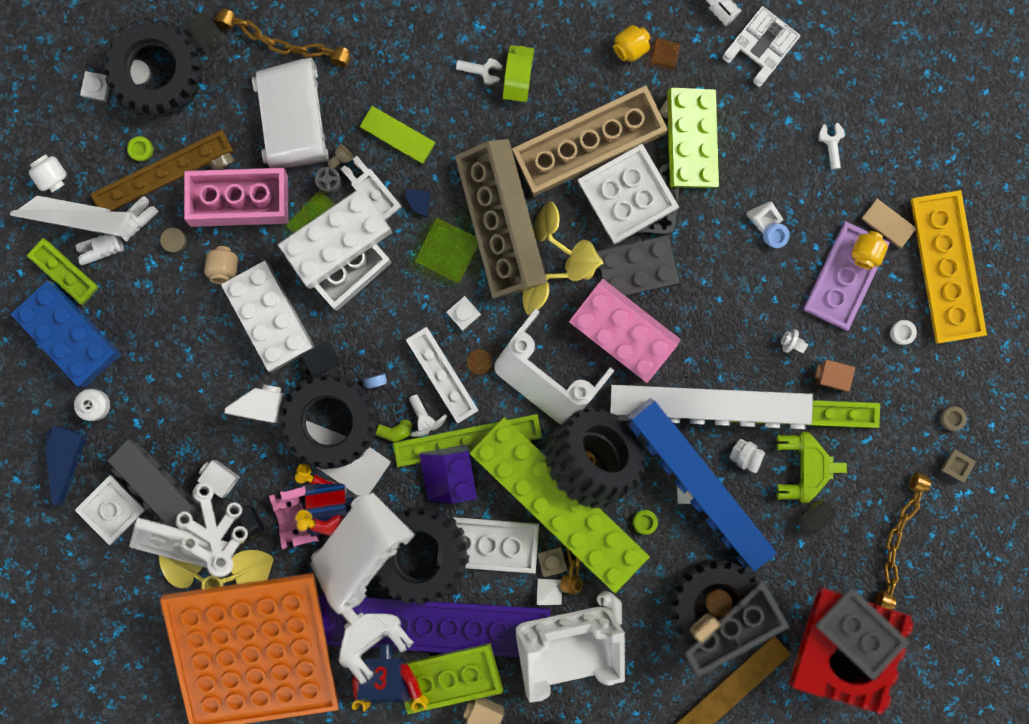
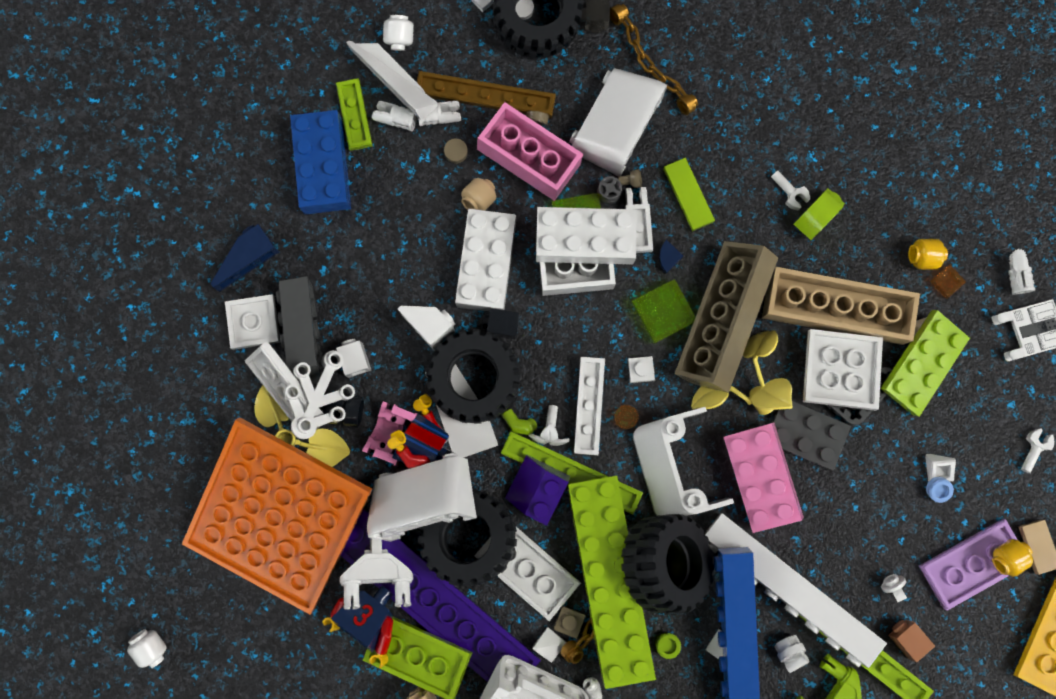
camera: 35 degrees right, 5 degrees down
(93, 399) = (299, 230): white head -> none
(140, 149) = (481, 65): lime tile -> none
(374, 381) = (532, 371): light blue tile -> none
(903, 332) = (991, 645): white tile -> none

